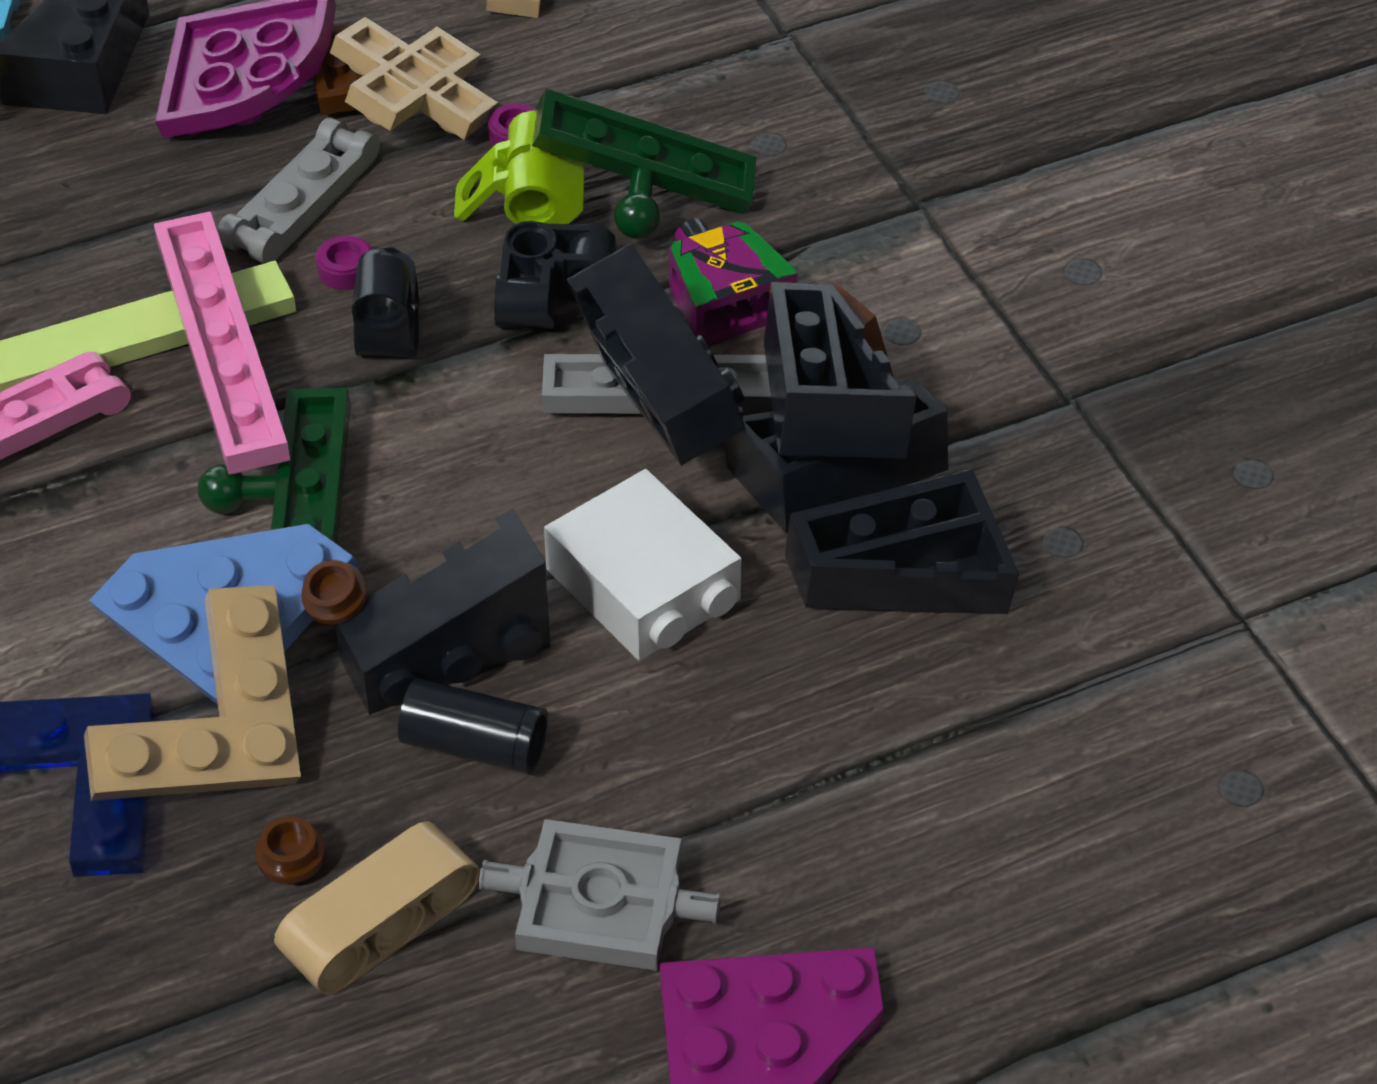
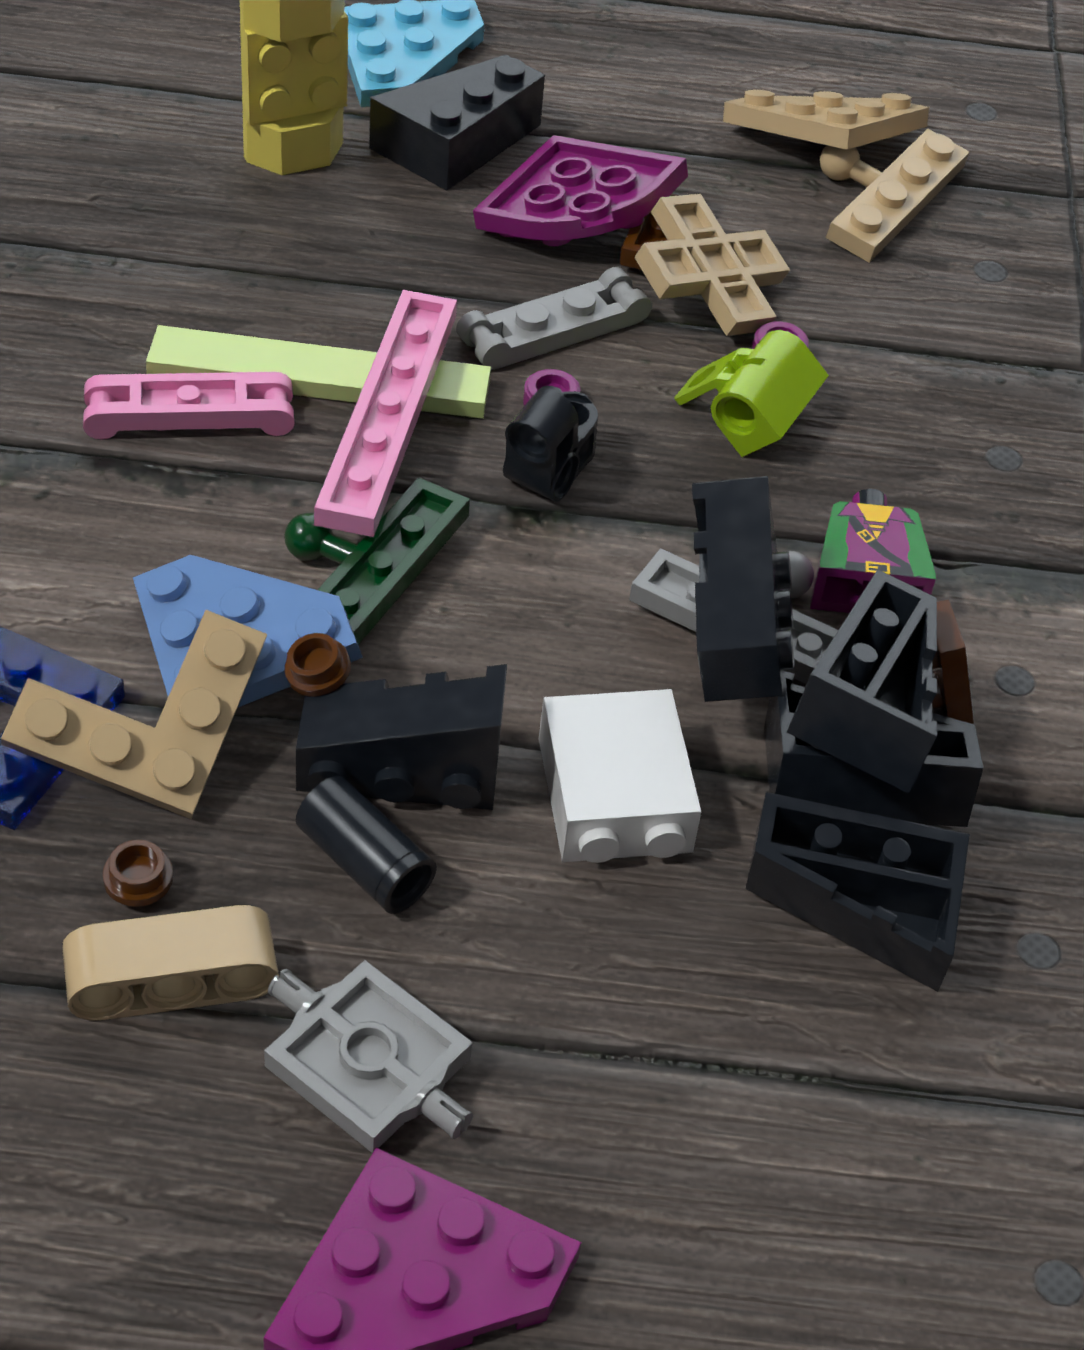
camera: 25 degrees right, 0 degrees up
(537, 266) = (710, 455): black piece -> none
(646, 155) = (867, 415): dark green plate -> none

